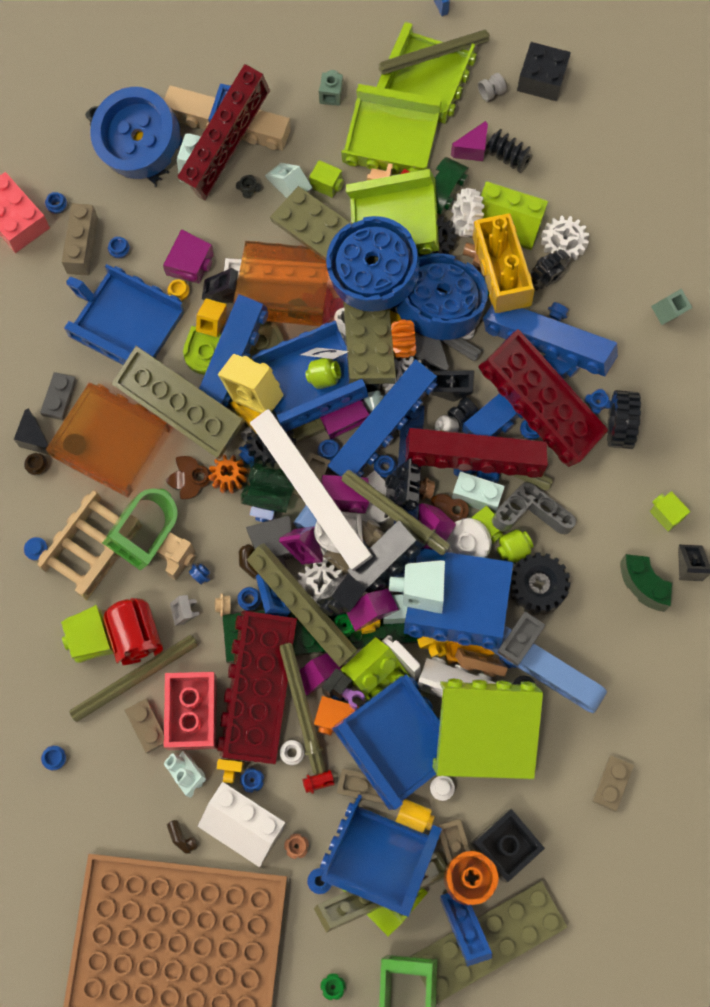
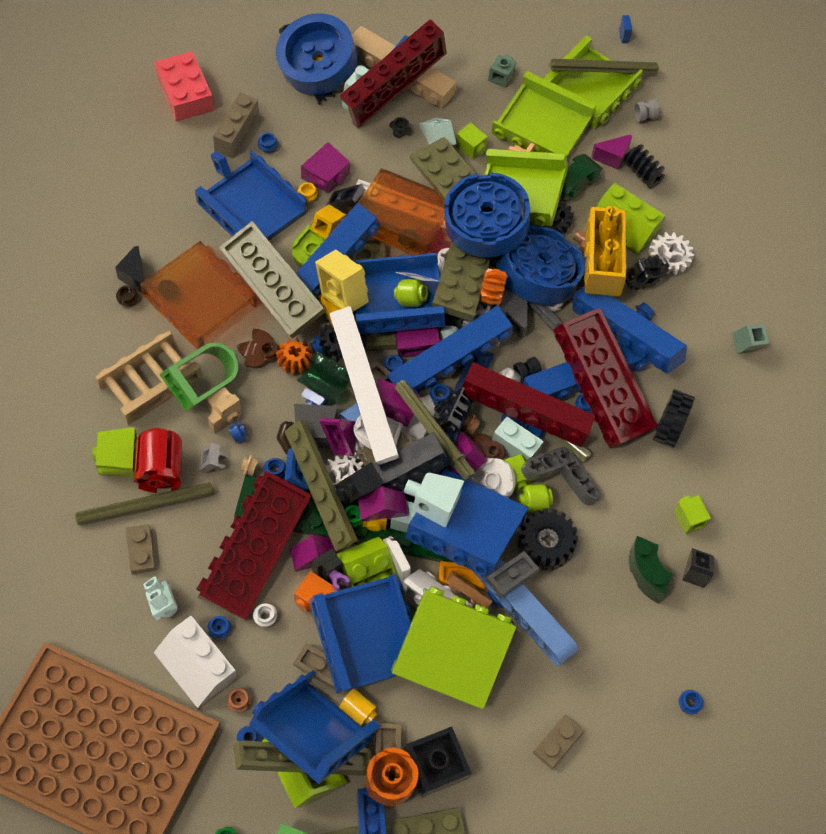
camera: 10 degrees right, 10 degrees down
(34, 547) = (97, 364): blue plate -> none
(53, 198) = (226, 90): blue plate -> none
(53, 758) = (45, 549): blue plate -> none
(58, 396) = (168, 246): dark grey plate -> none
(179, 840) = (131, 656): dark brown arm -> none
(190, 711) = (185, 546): coral brick -> none
(230, 768) = (202, 609): yellow tile -> none
(311, 742) = (288, 577): olive axle -> none
(318, 781) = (279, 648): red pin -> none
(435, 647) = (431, 560): yellow tile -> none
(442, 788) = (394, 692): white plate -> none
(454, 384) = (526, 342): black slope -> none
(466, 211) = (590, 197): white gear -> none
(543, 71) = (697, 111): black brick -> none
(598, 395) = (656, 394): blue plate -> none

